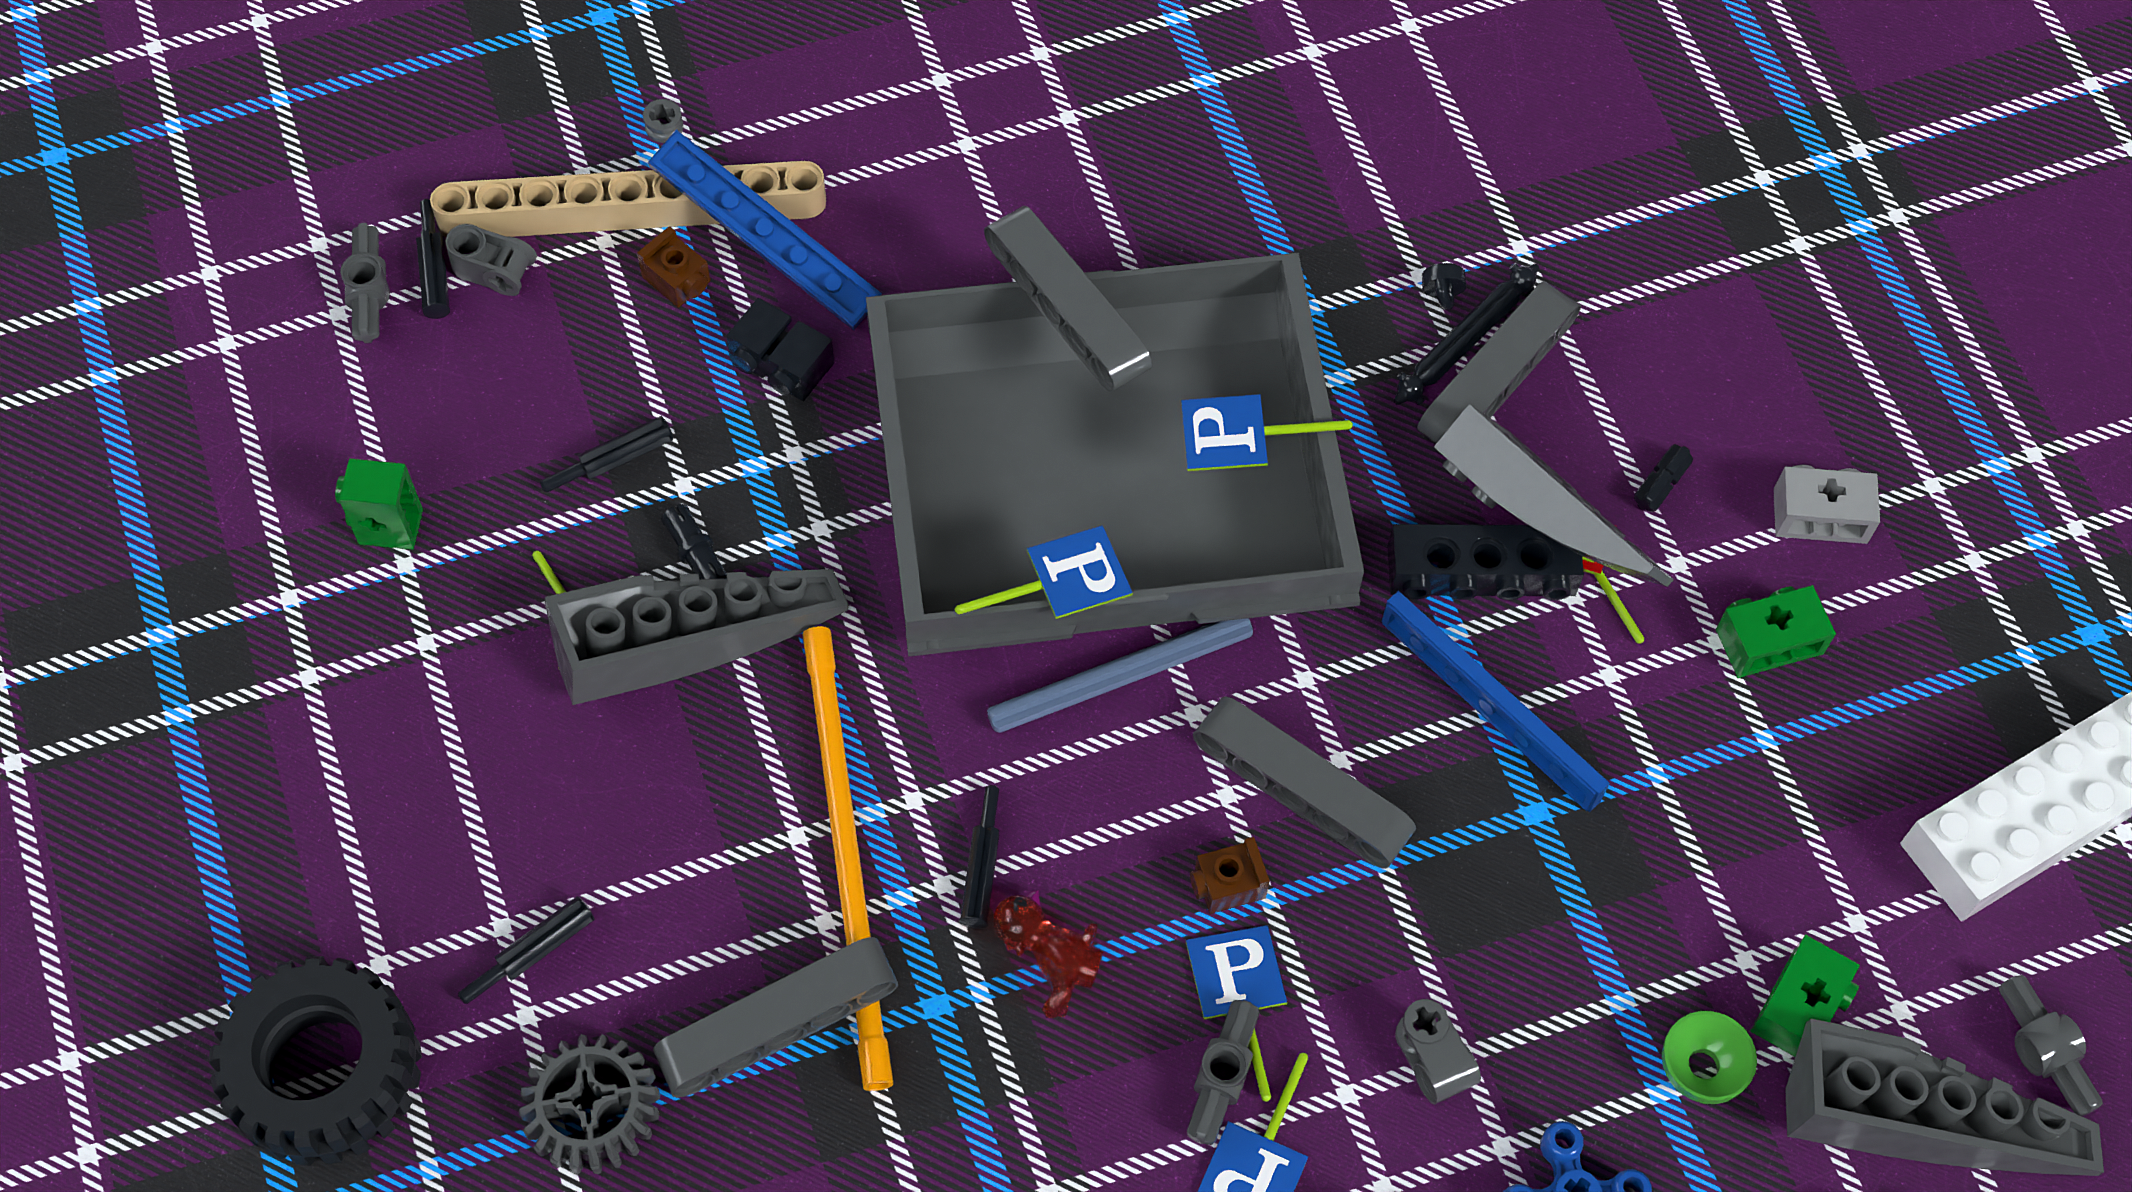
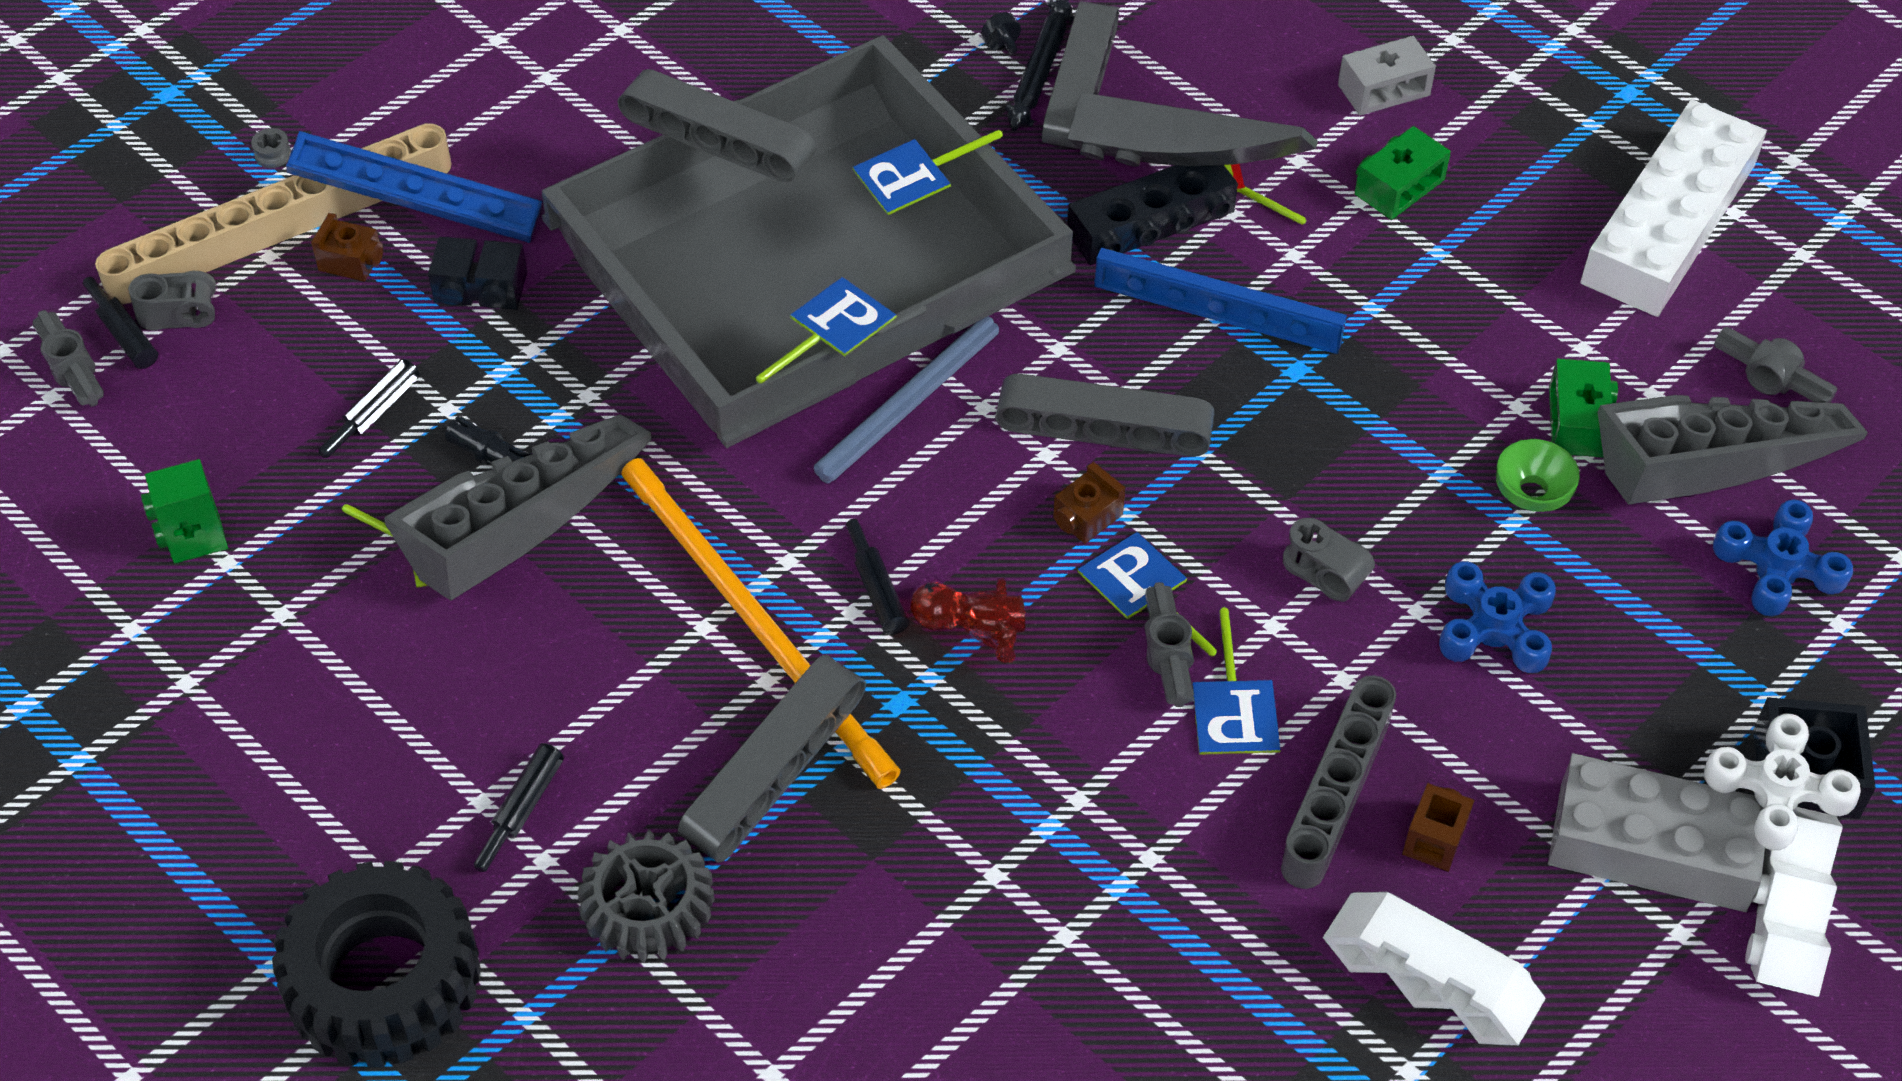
camera: 25 degrees left, 10 degrees down
(1658, 484) = (1253, 98): black piece -> none

